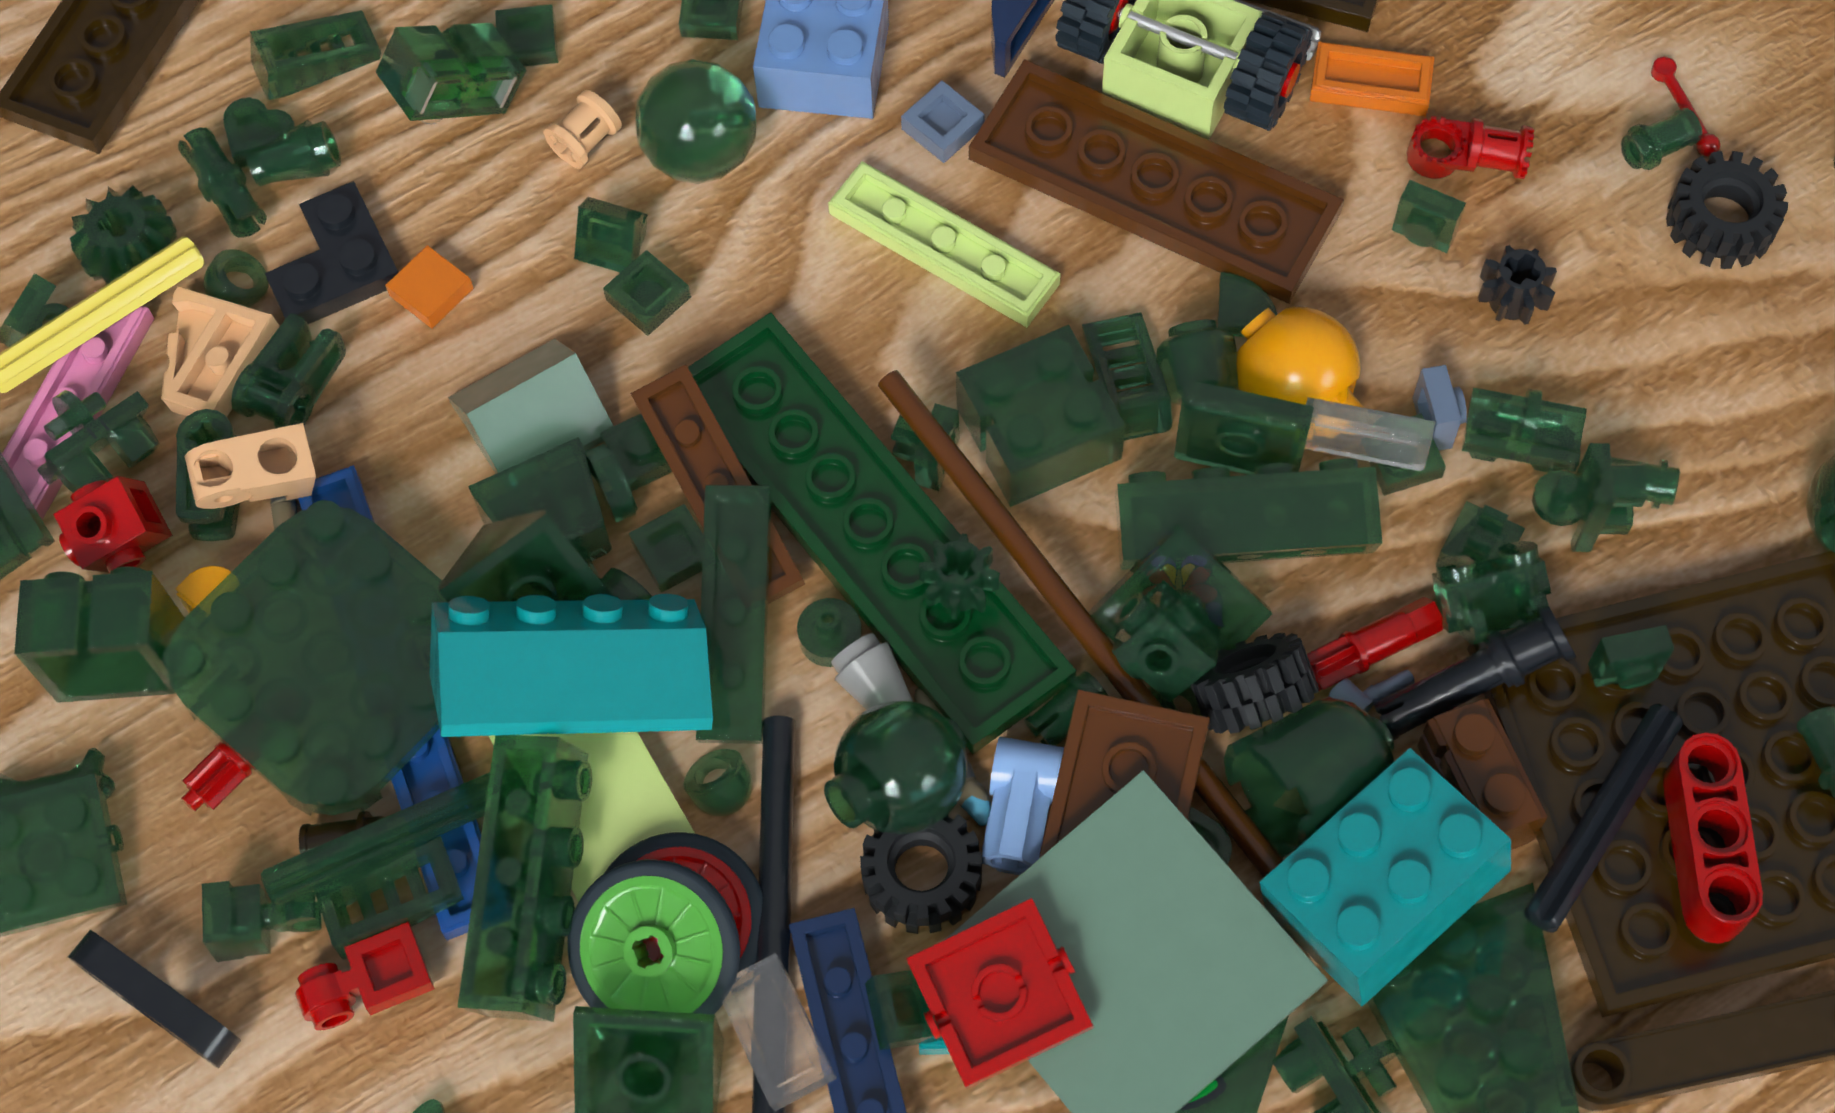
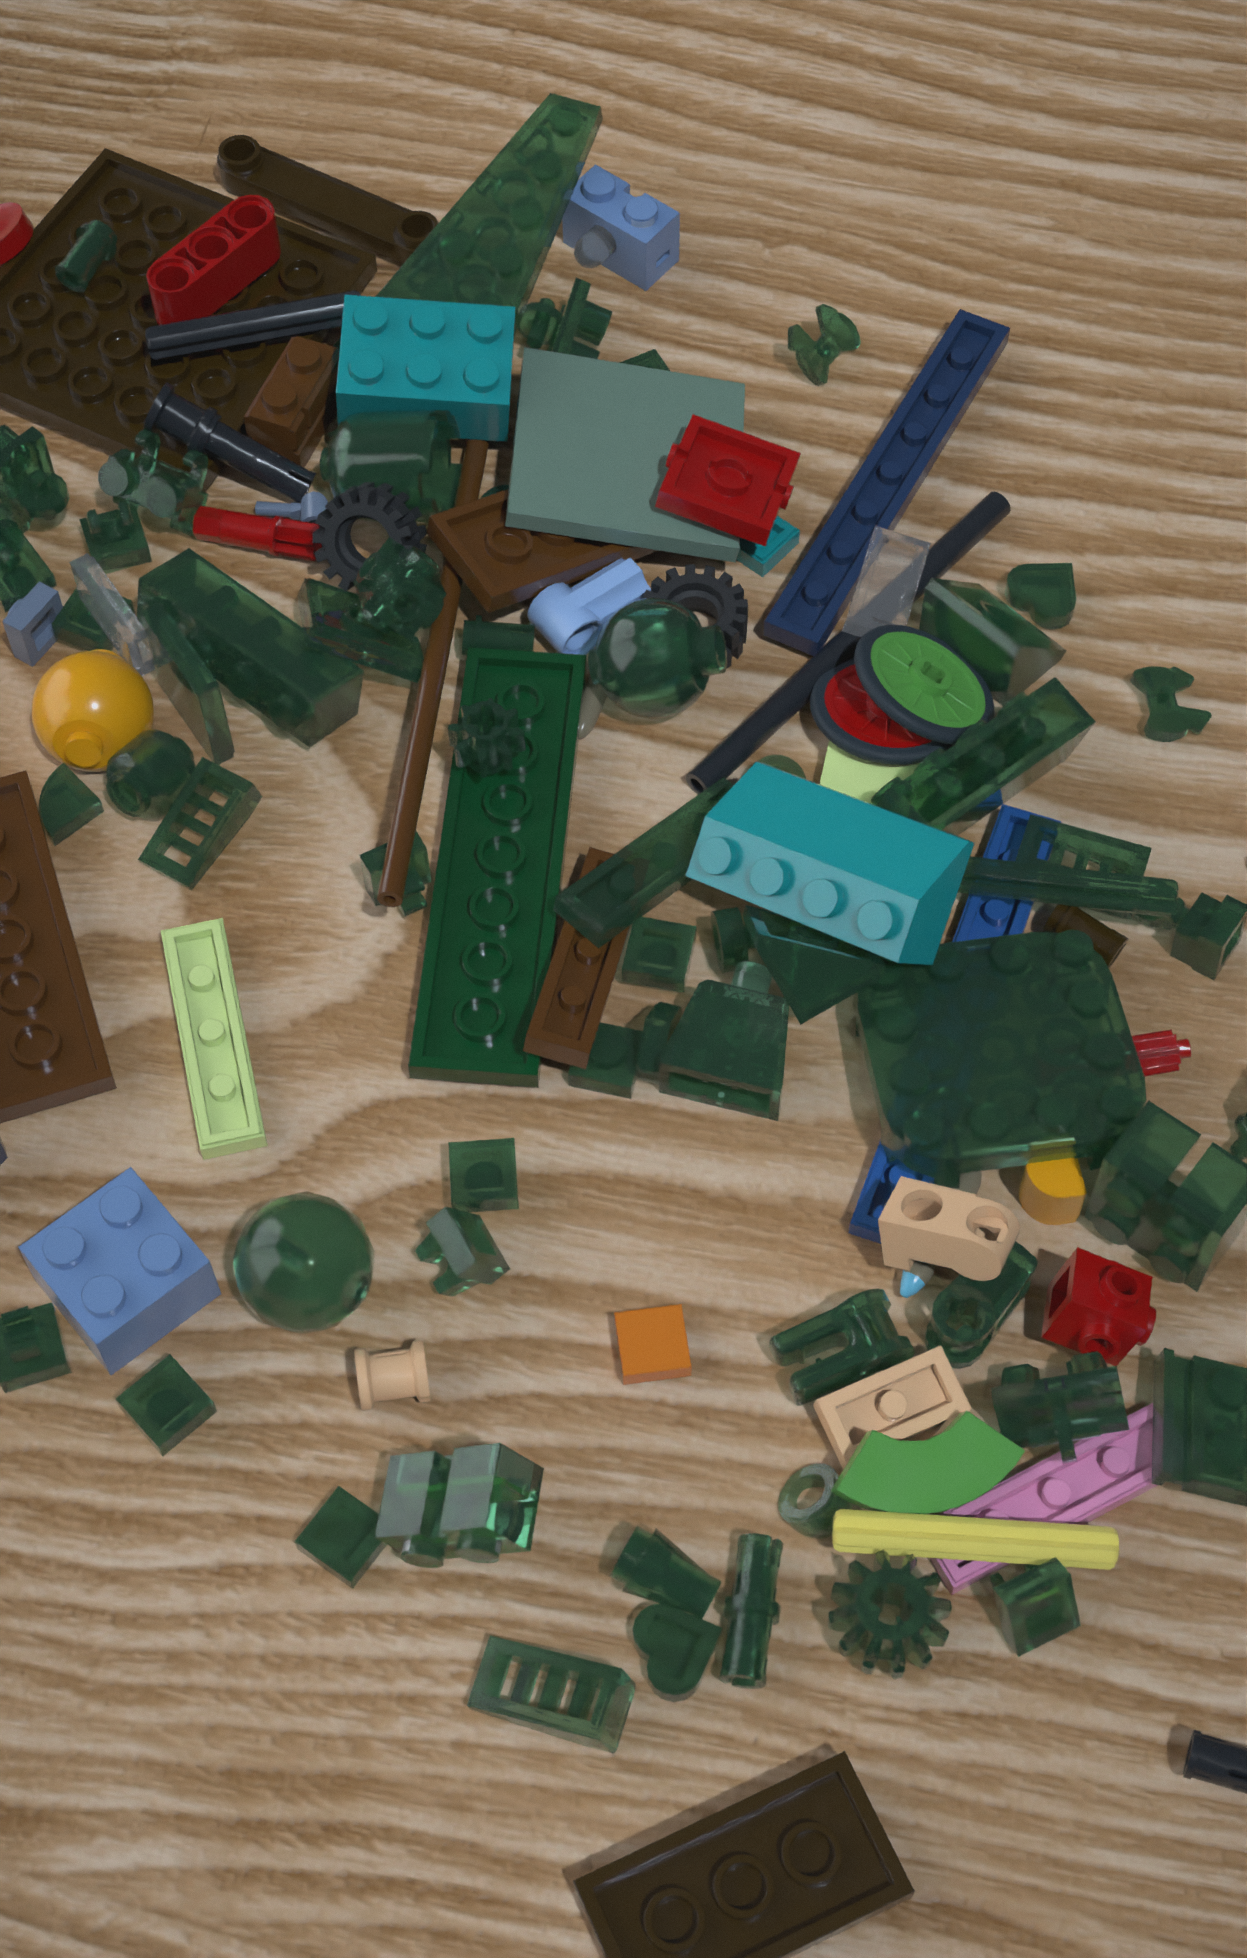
camera: 140 degrees left, 5 degrees down
(158, 330) = (927, 1473): none -> bright green tile
(346, 268) = (705, 1426): black plate -> none
(383, 971) = (1129, 817): red plate -> none
(532, 407) = (664, 1163): sand green slope -> none
(827, 629) = (602, 818): clear green tile -> none
(870, 672) = (606, 755): light grey cone -> none
(898, 1010) = (791, 541): clear green tile -> none
(942, 121) = (102, 1126): sand blue plate -> none
(1044, 413) = (293, 827): clear green piece -> none
(1631, 657) = (129, 374): clear green plate -> none

